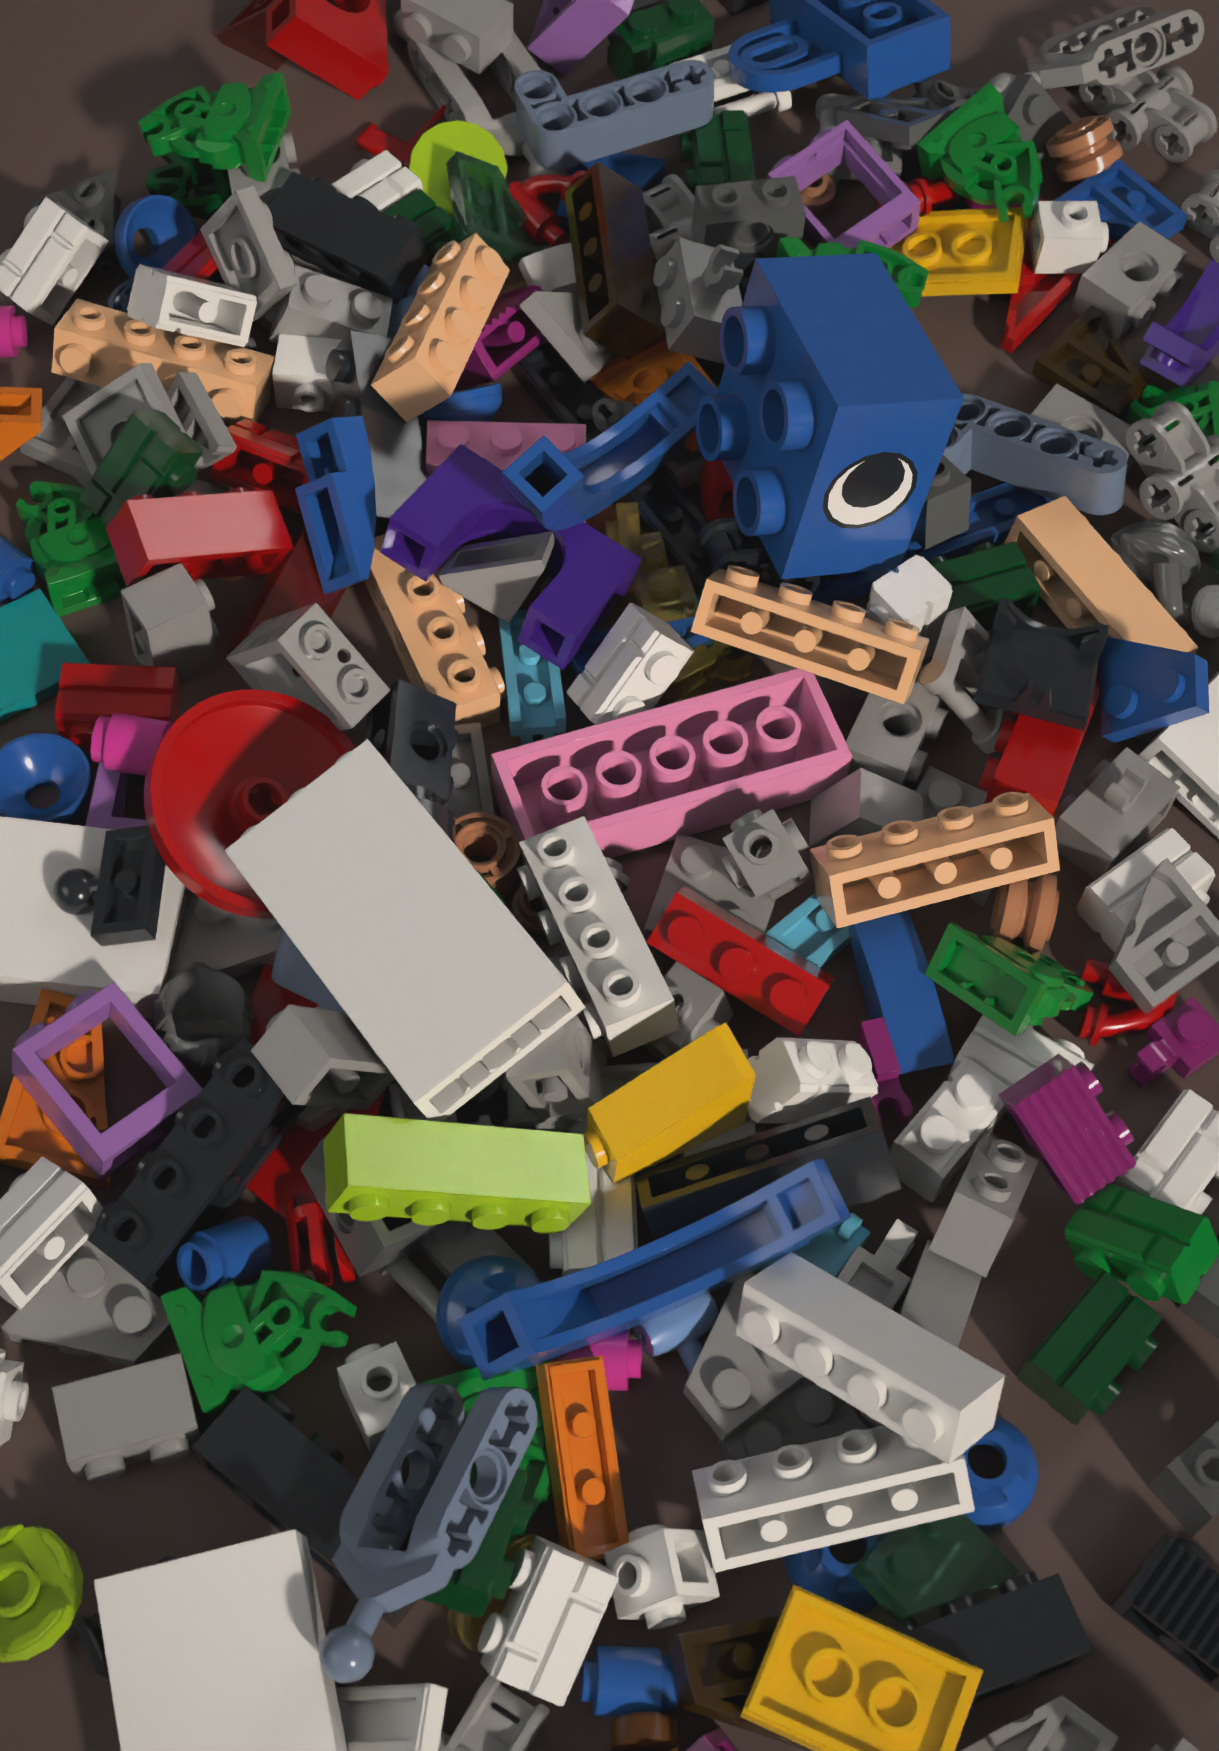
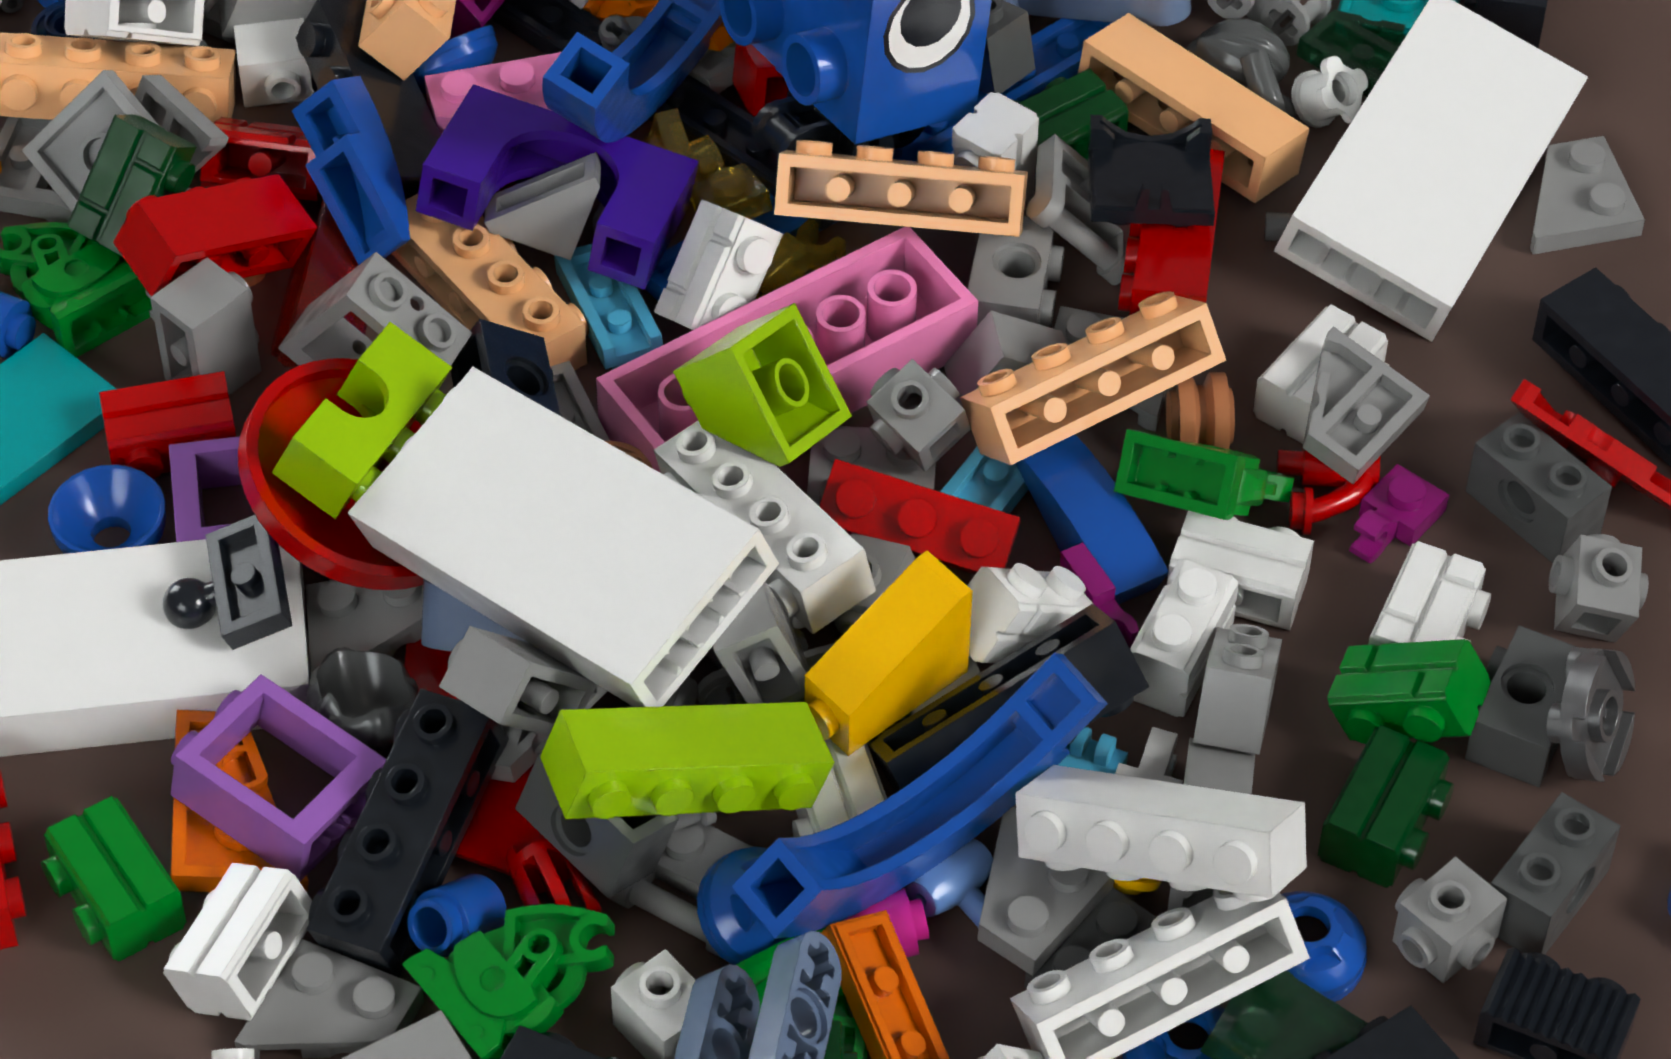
camera: 10 degrees left, 10 degrees down
(126, 742) = (204, 446): dark pink brick -> none
(231, 791) = (339, 453): none -> lime arch
(630, 810) = (765, 388): none -> lime slope
(1069, 1128) = (1304, 597): magenta brick -> none
(1113, 813) = (1267, 306): light grey brick -> none
(1116, 1486) = (1448, 920): none -> light grey brick
(1149, 688) = (1269, 171): blue wing -> none

